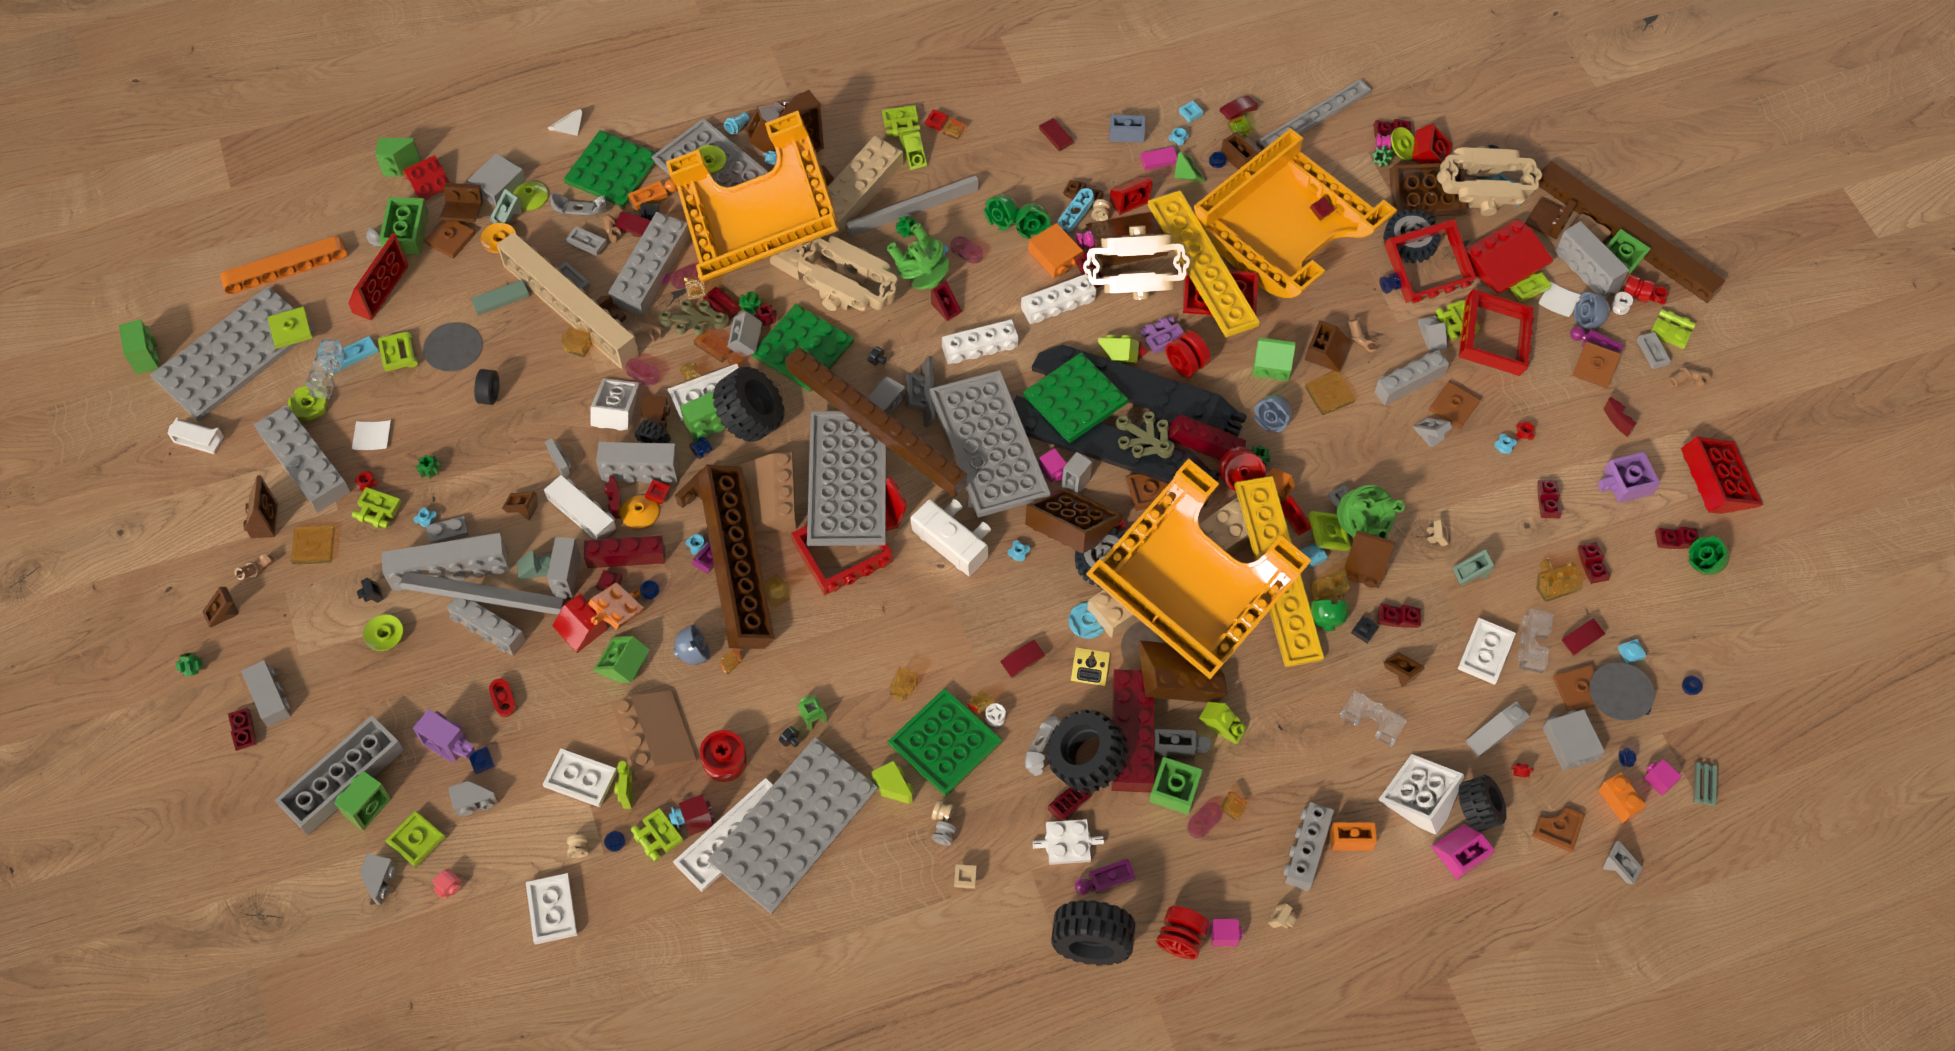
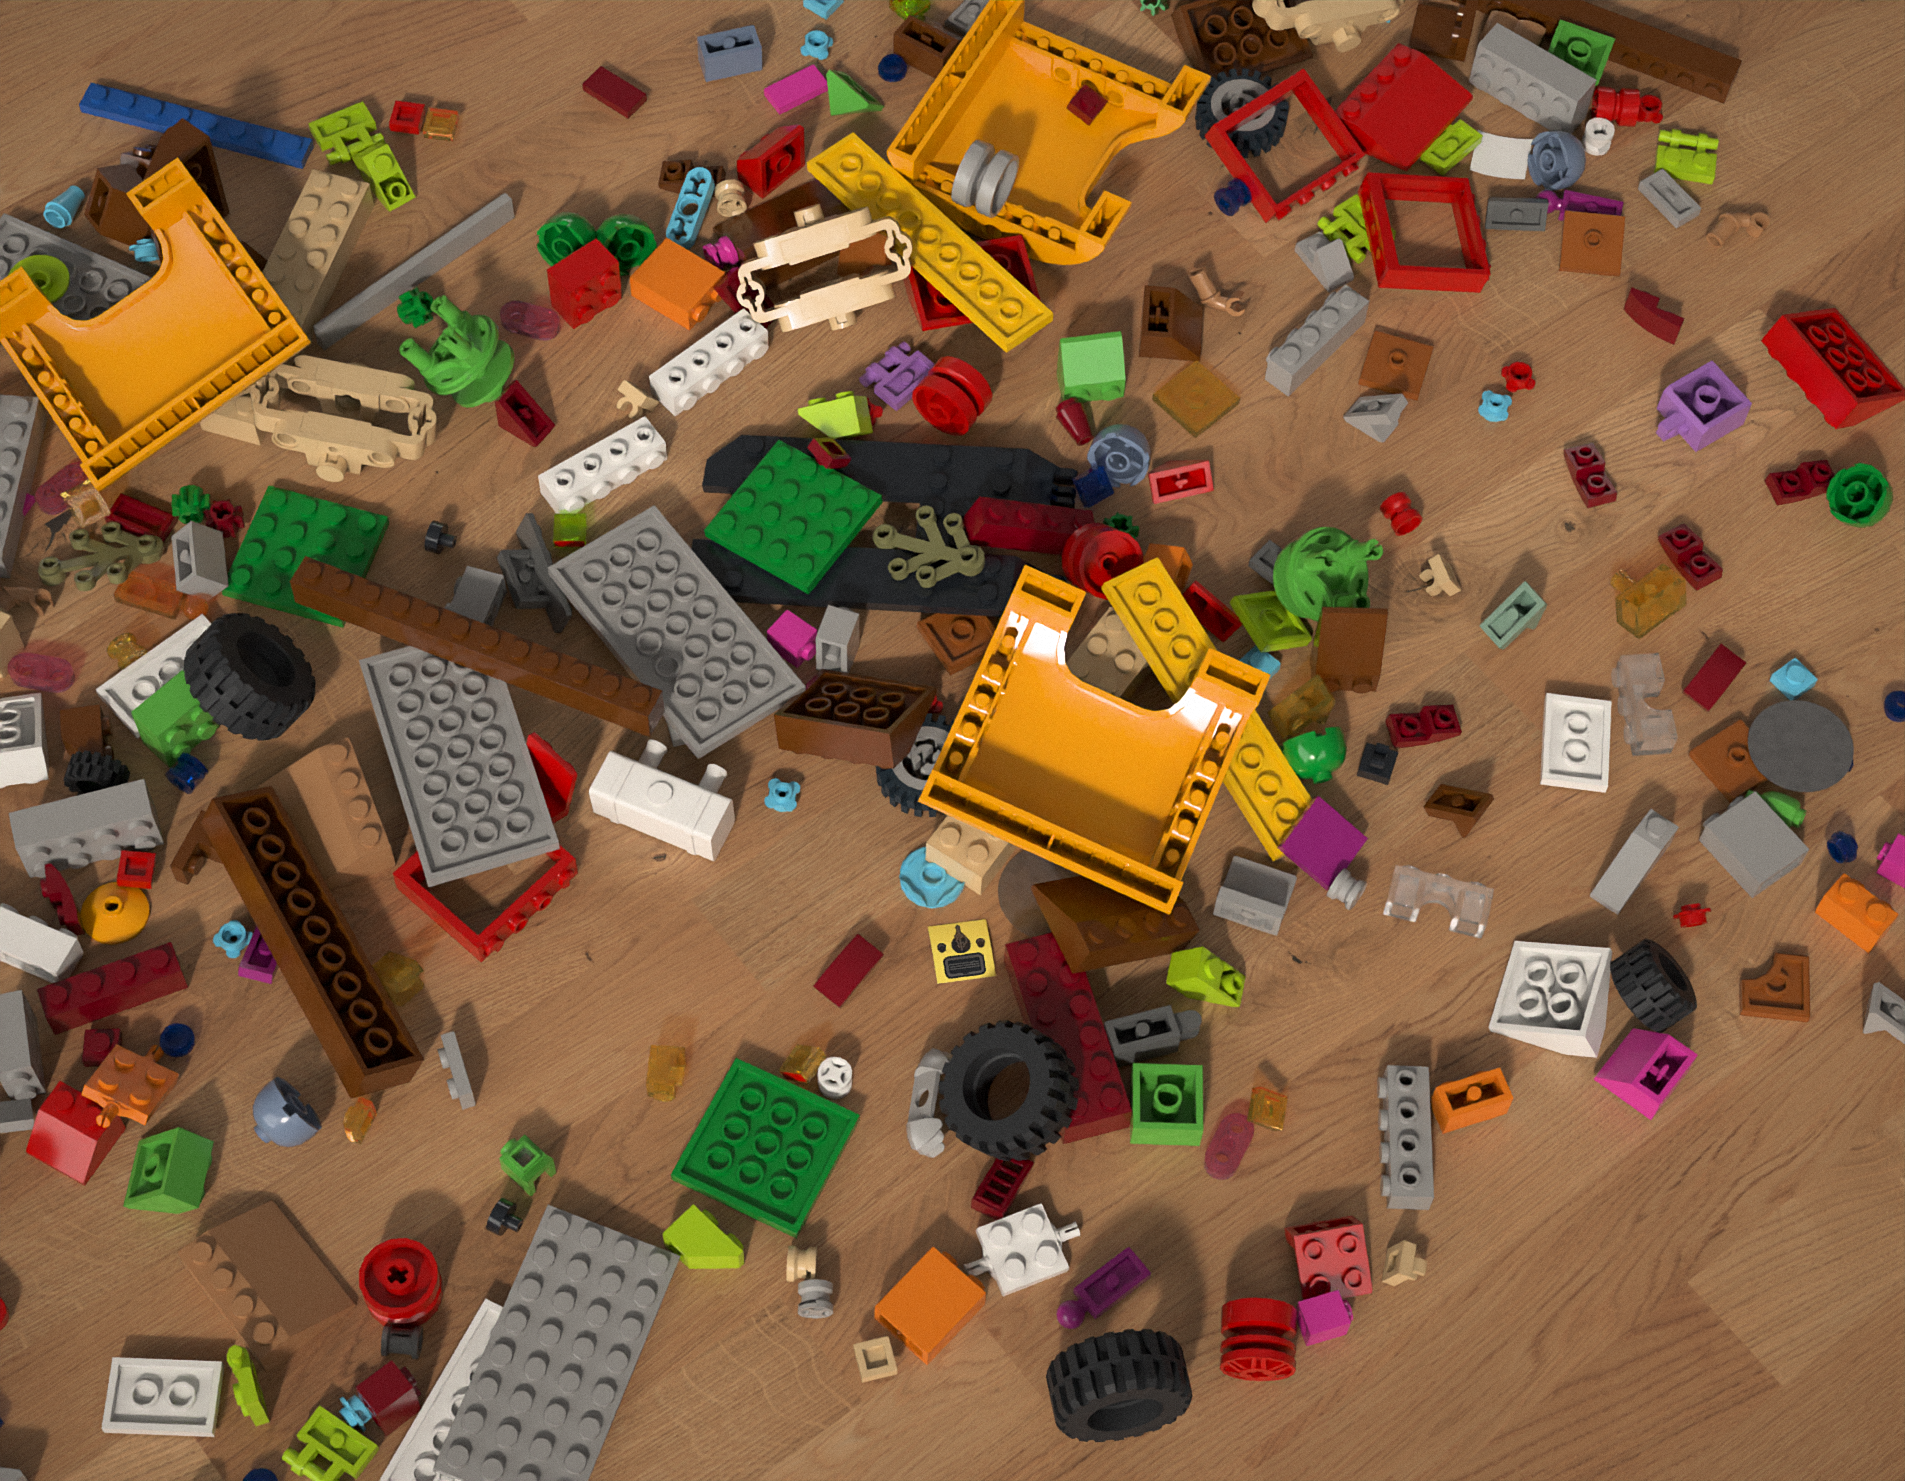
camera: 20 degrees left, 0 degrees up
(714, 787) = (401, 1341): none -> dark grey bush
(790, 642) = (459, 1084): none -> light grey plate
(826, 98) = (223, 131): none -> blue plate
(950, 371) = (570, 530): none -> clear neon green plate
(1002, 237) = (584, 283): none -> red brick
(1006, 856) = (930, 1304): none -> orange brick
(1011, 307) = (637, 397): none -> tan tile
(1106, 367) = (829, 453): none -> dark red plate
(1163, 261) = (864, 255): none -> dark orange tile
(1241, 900) = (1331, 1257): none -> bracket
(1245, 235) = (985, 178): none -> light grey wheel
(1252, 426) = (1093, 485): none -> clear blue plate
(1254, 384) = (1074, 419): none -> dark red cone
(1267, 683) = (1255, 895): none -> light grey bracket
(1304, 436) = (1180, 479): none -> red slope
(1316, 665) = (1322, 842): none -> magenta tile
(1322, 695) = (1346, 889): none -> light grey wheel
(1427, 490) = (1401, 514): none -> red wheel
(1556, 336) = (1516, 214): none -> dark grey plate
(1599, 724) = (1784, 806): none -> bright green plant

